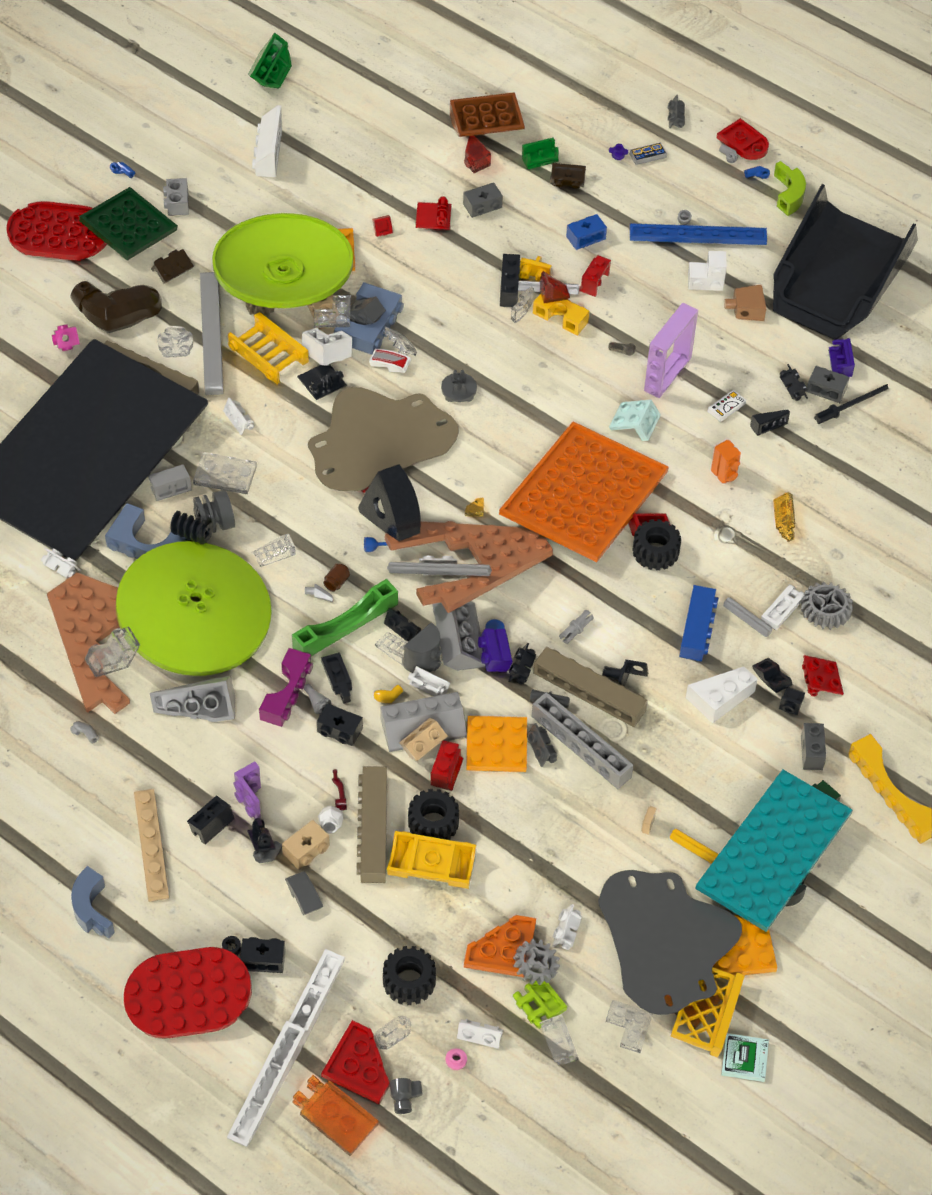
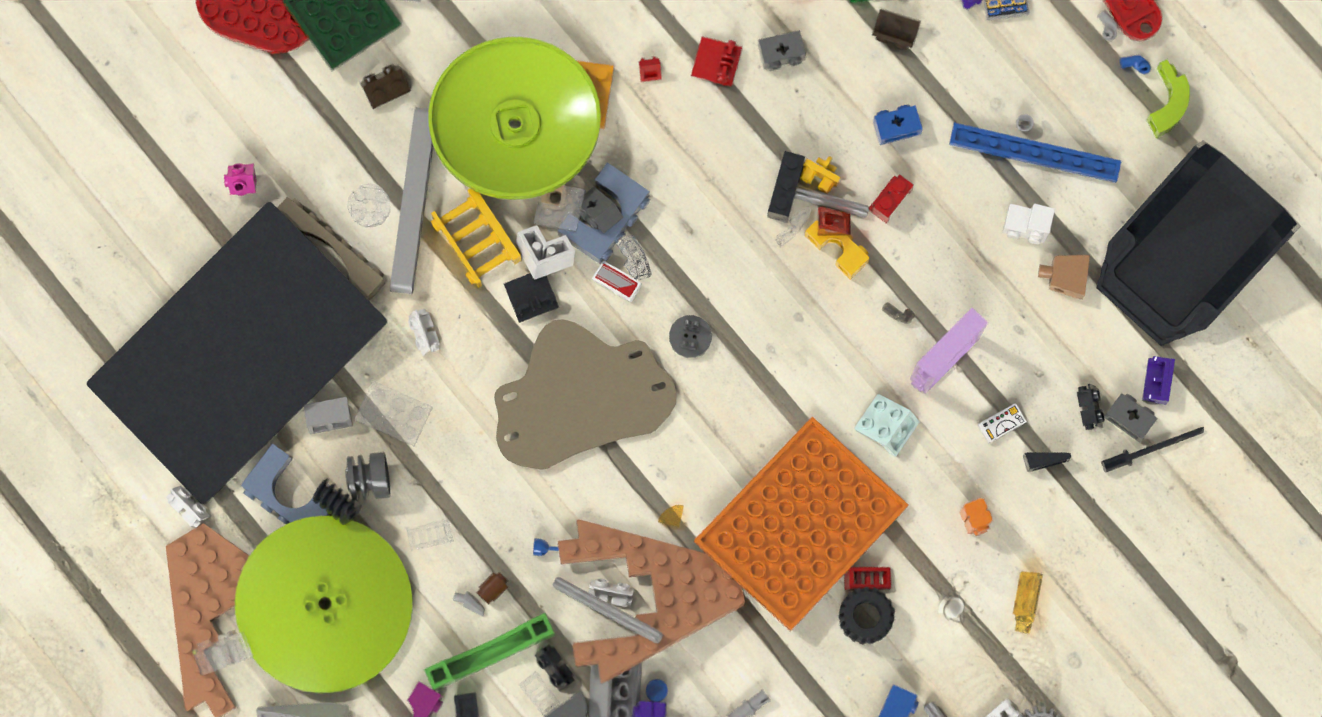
camera: 15 degrees right, 25 degrees up
(118, 308) = (311, 143): dark brown piece -> none
(398, 501) = (574, 519): black piece -> none

